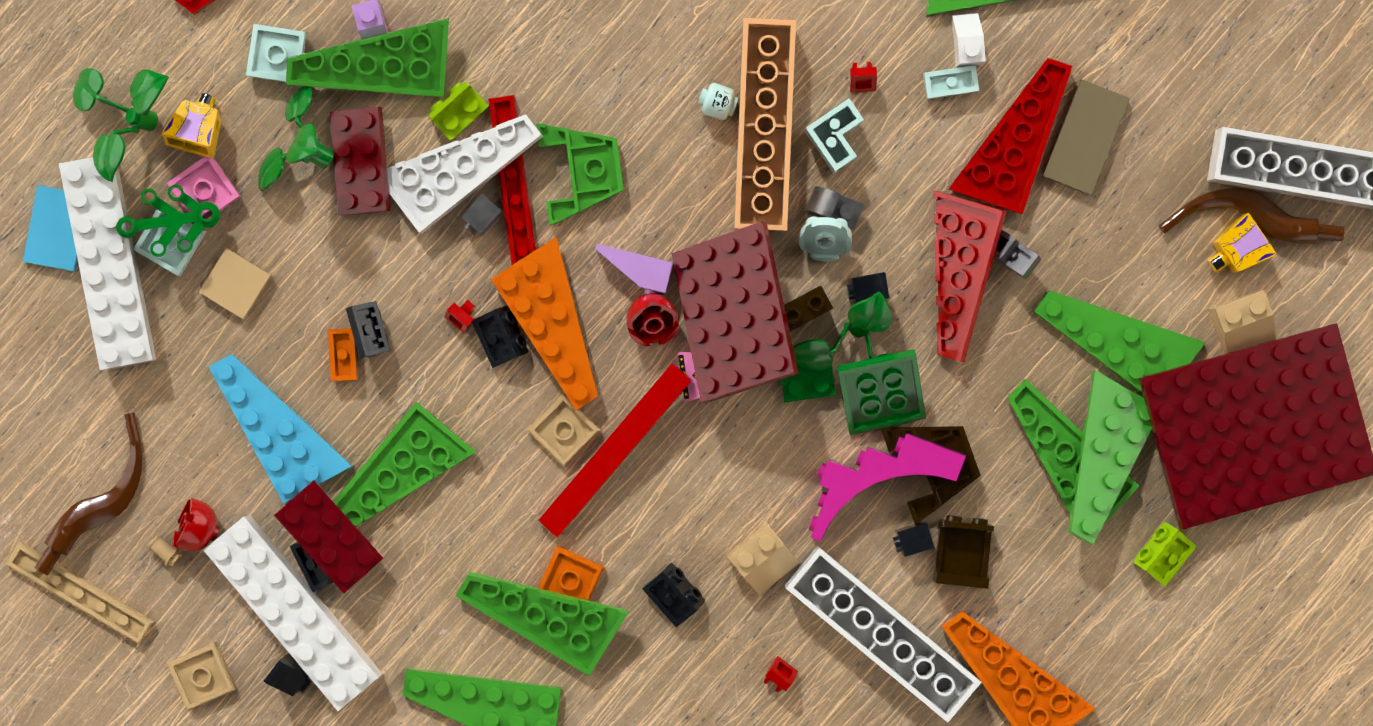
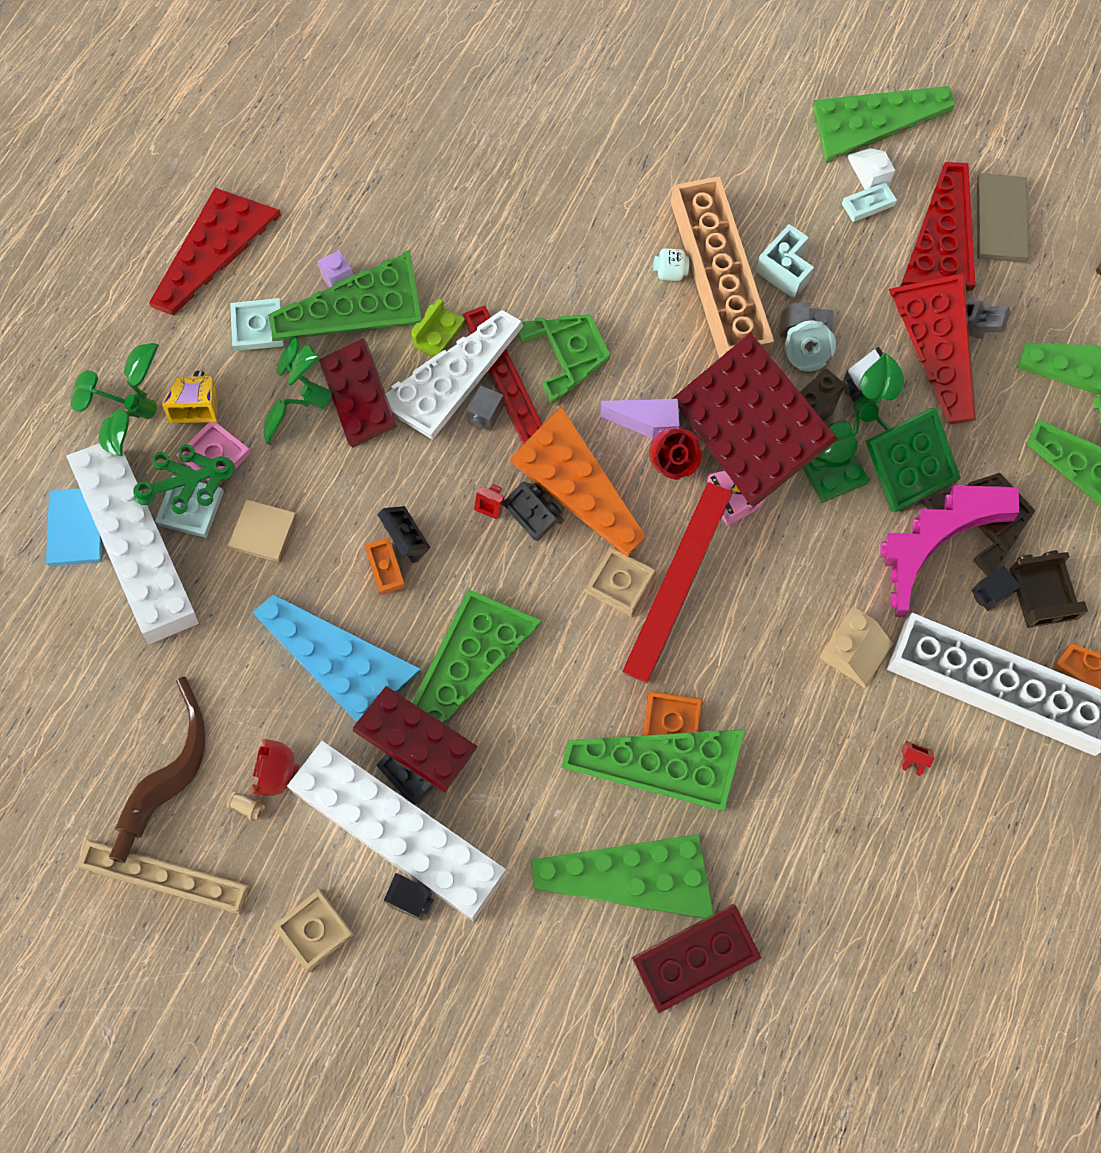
camera: 15 degrees left, 20 degrees down
(674, 594) = (781, 707): black bracket -> none
(863, 78) = (793, 214): red tile -> none

